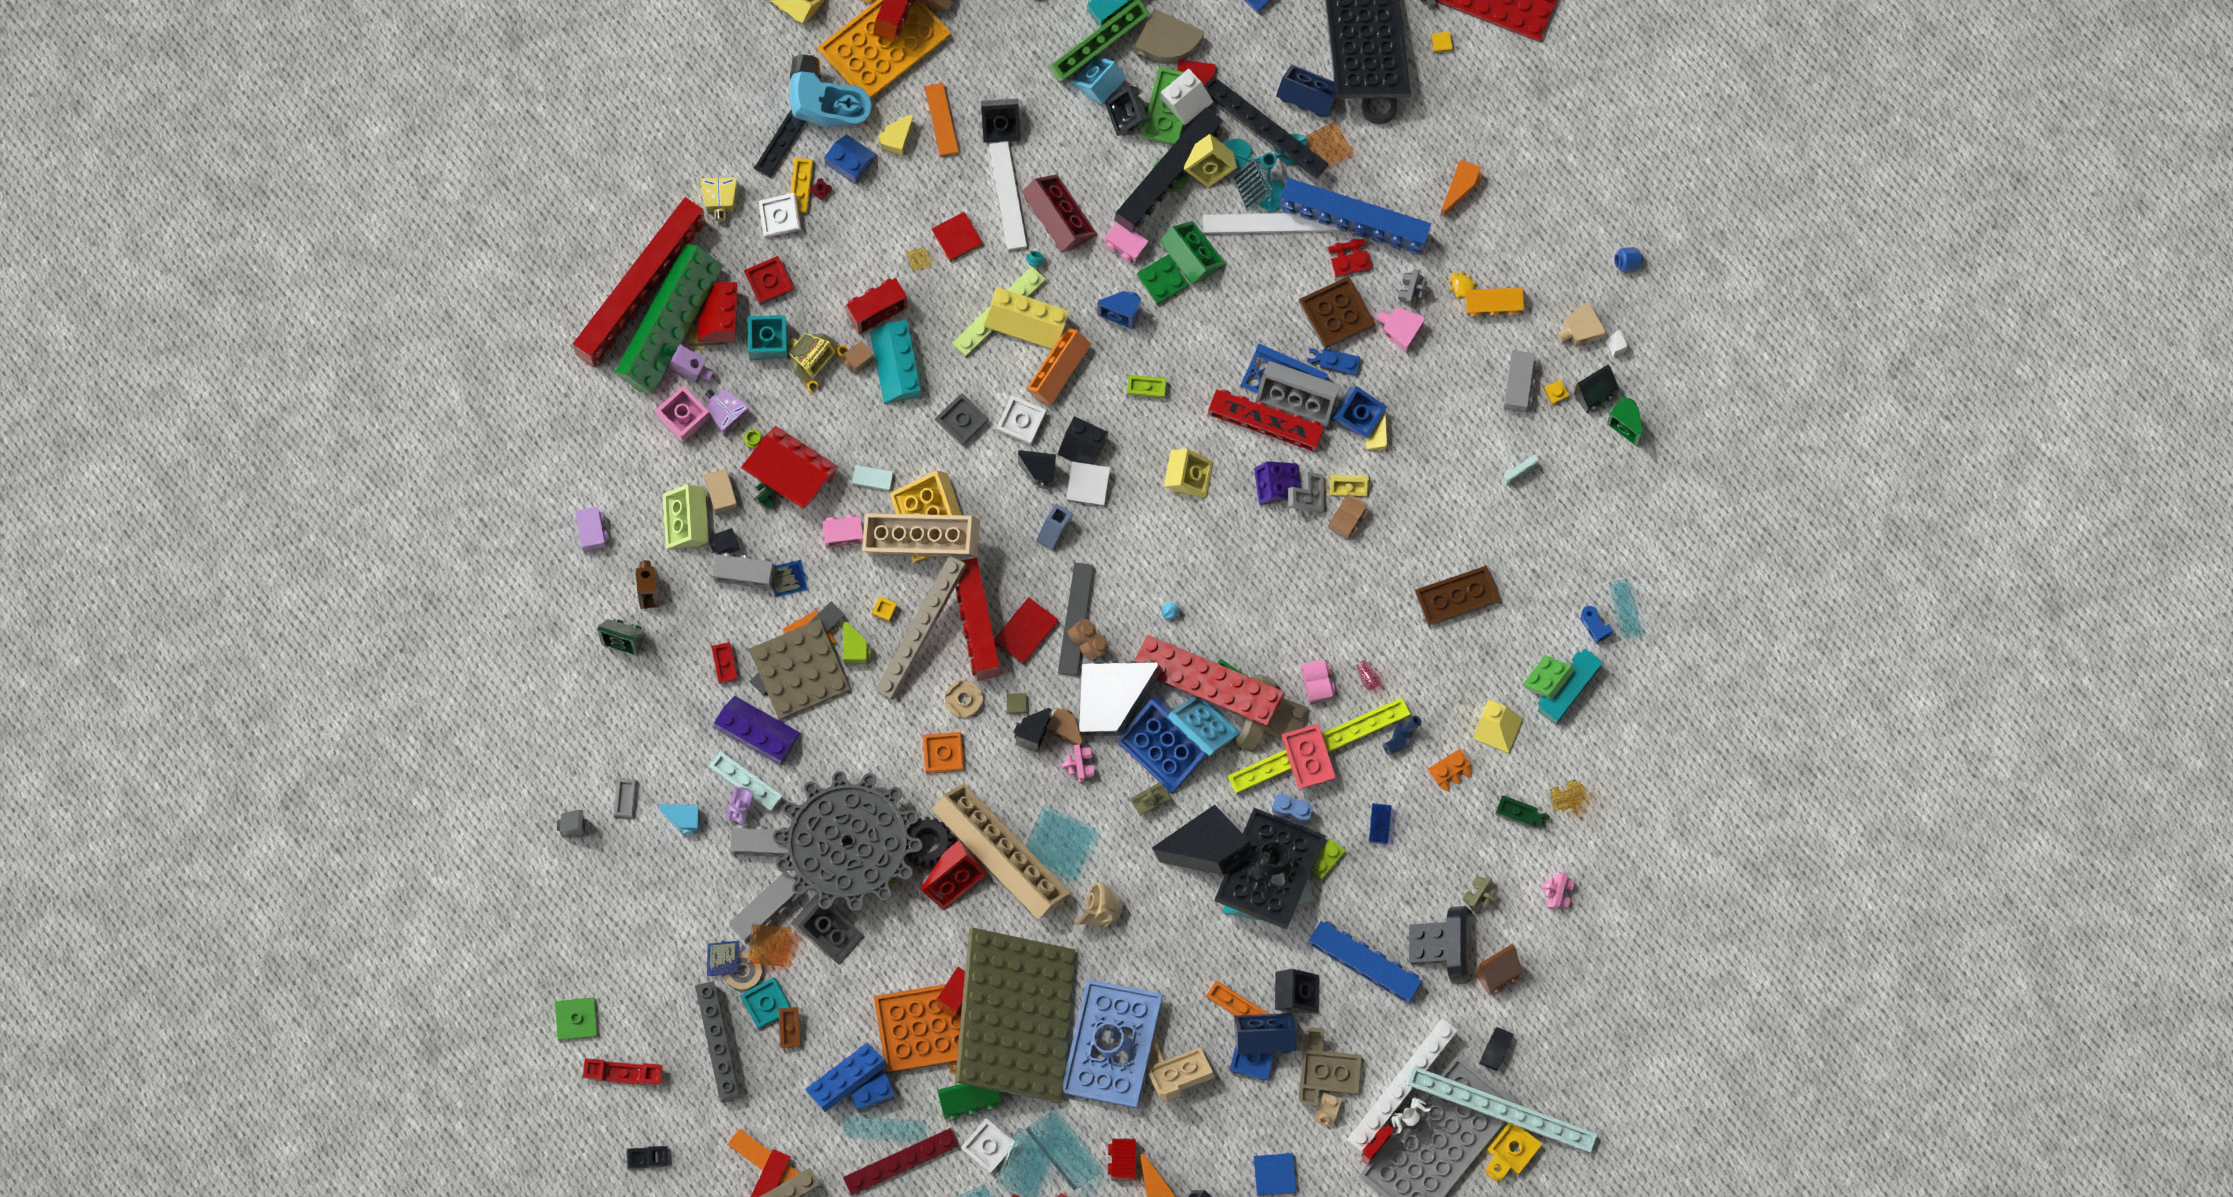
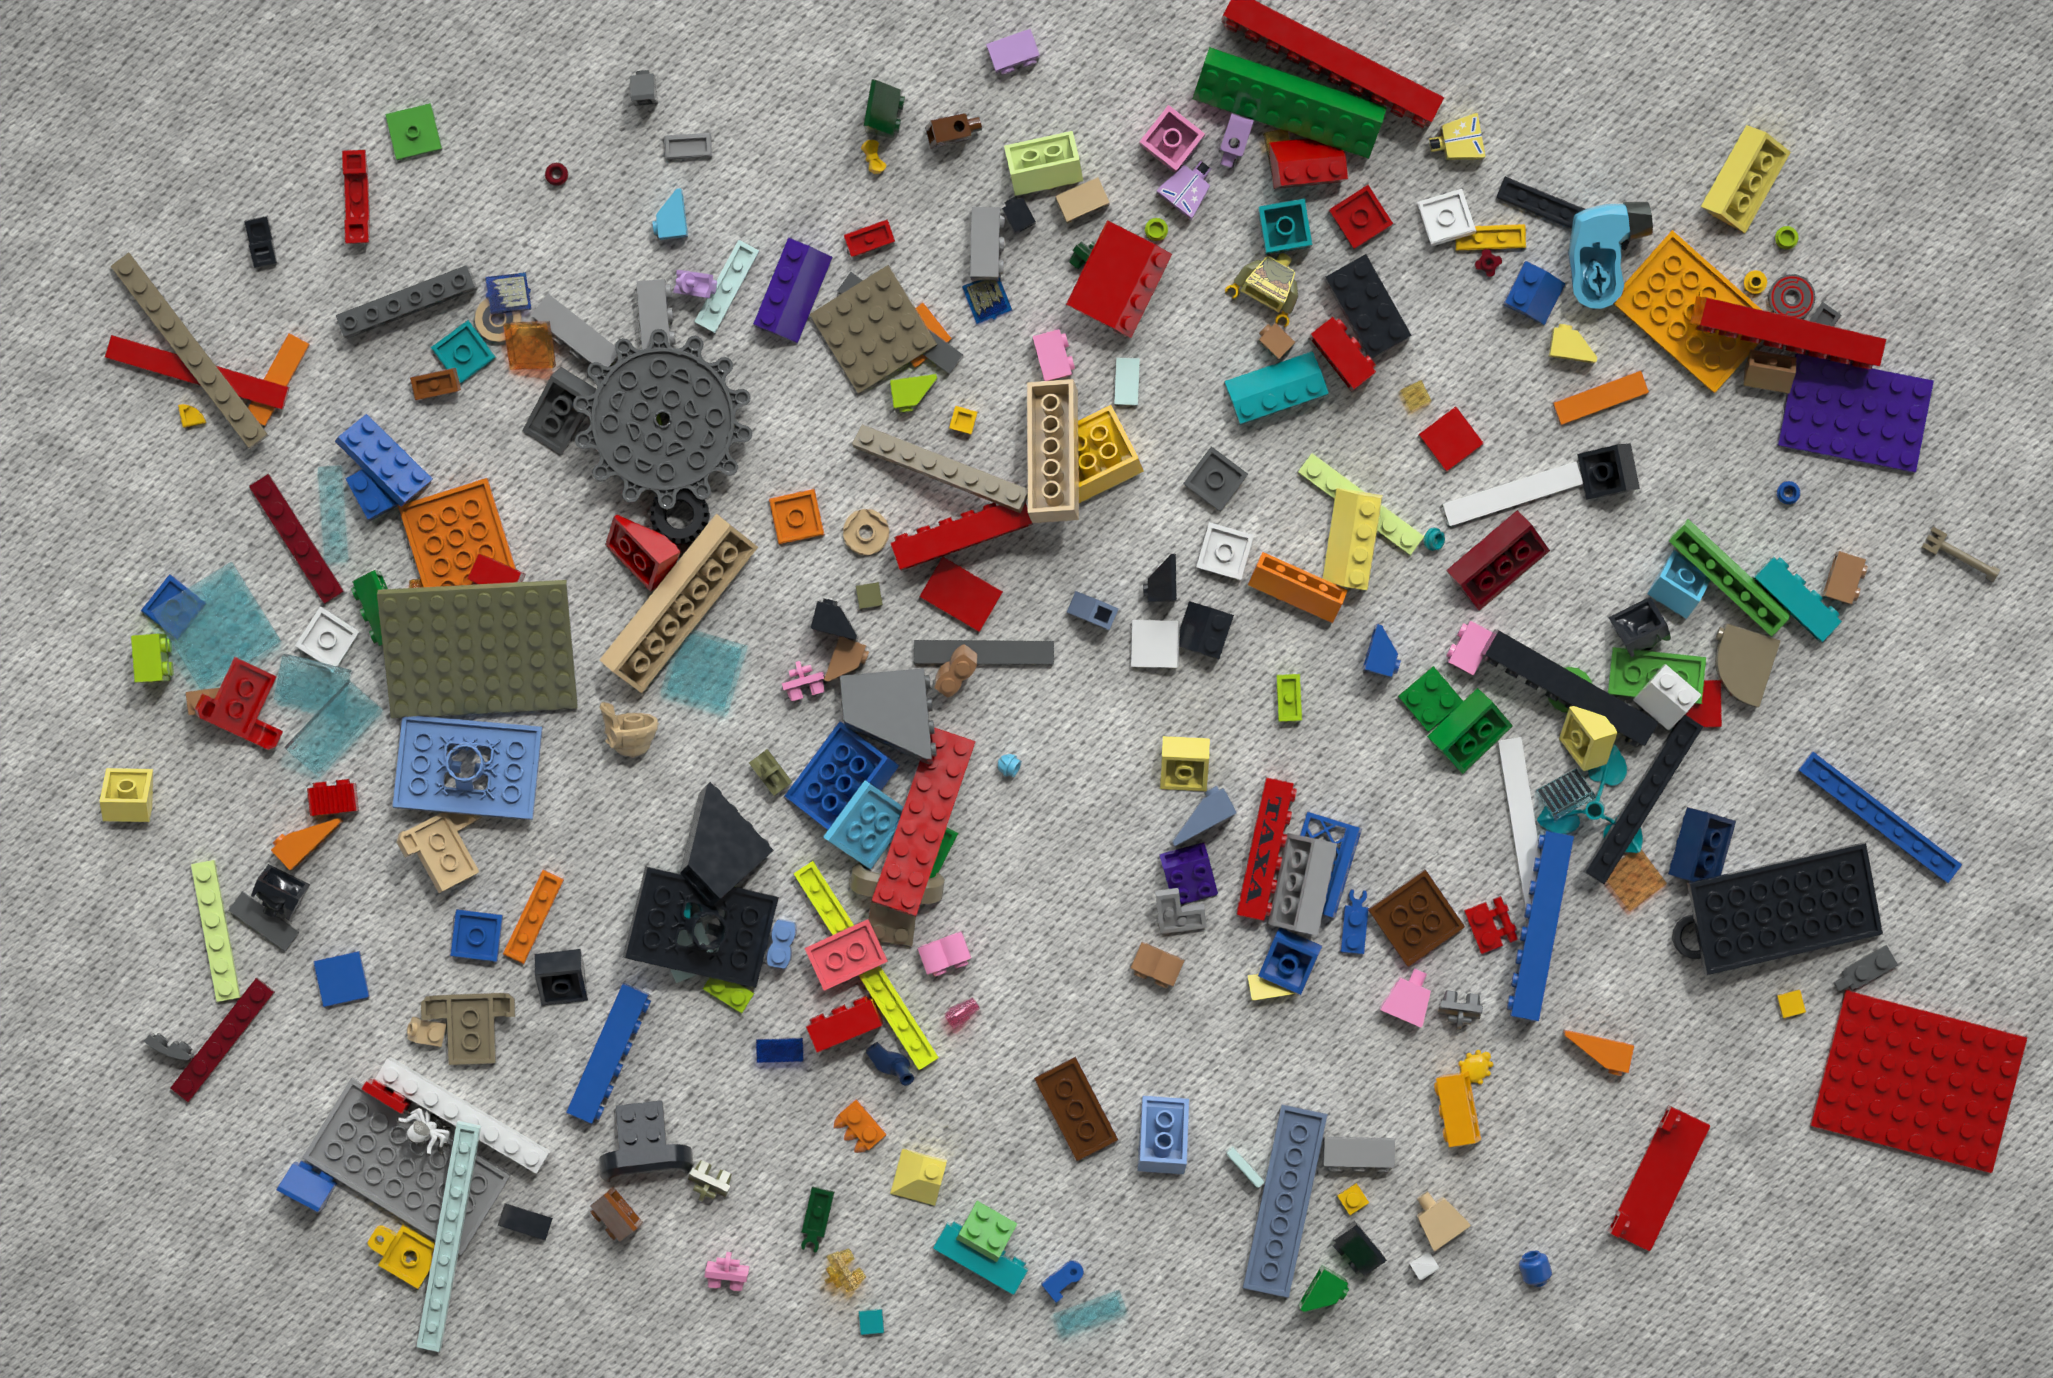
camera: 85 degrees right, 15 degrees up
(626, 902) = (549, 174): none -> dark red plate
(665, 650) = (870, 148): none -> yellow piece
(840, 282) = (1367, 306): none -> black brick
(1230, 458) = (1208, 812): none -> sand blue slope
(1265, 1033) = (502, 946): dark blue slope -> none
(1353, 484) = (1199, 960): light yellow slope -> none
(1364, 765) = (844, 1023): none -> red brick
(1487, 530) = (1163, 1135): none -> medium blue slope
(1551, 443) = (1285, 1200): none -> sand blue plate
(1567, 158) = (1659, 1178): none -> red bracket
(1611, 781) = (871, 1321): none -> teal tile

